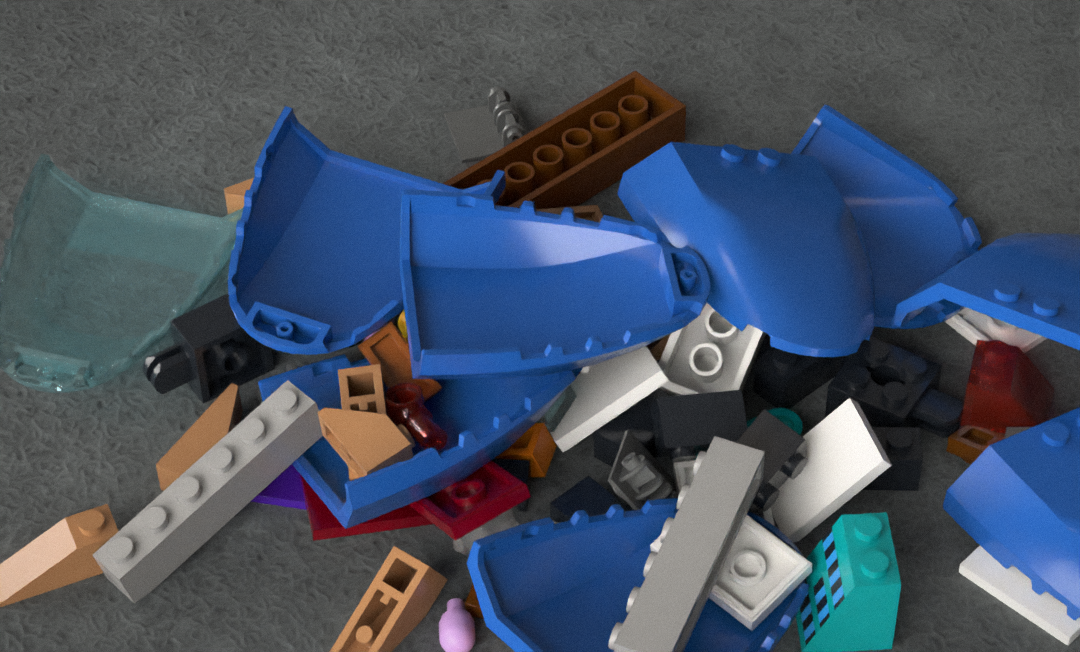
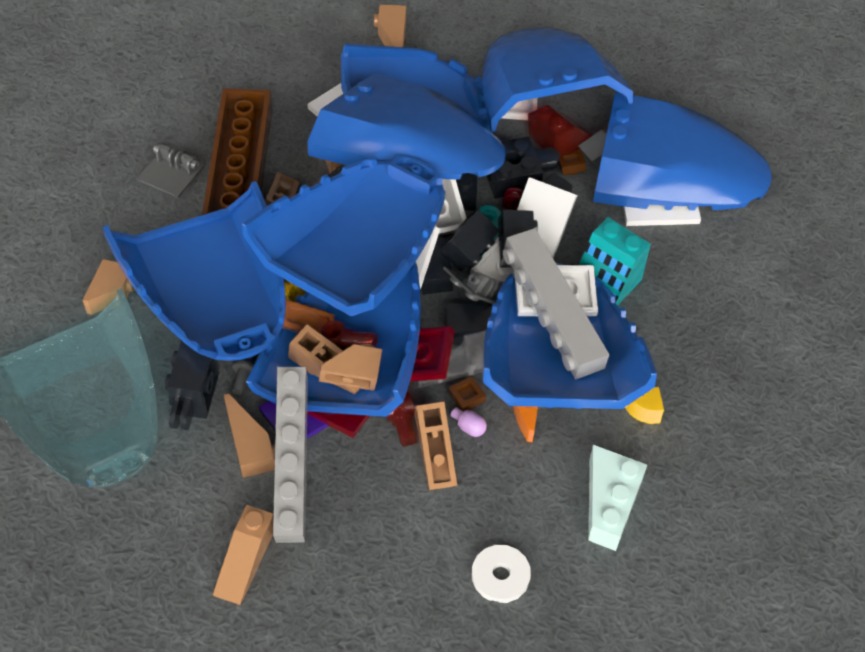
camera: 50 degrees left, 10 degrees up
(384, 539) = (402, 420): none -> clear red pin
(948, 136) = (391, 24): none -> medium nougat slope

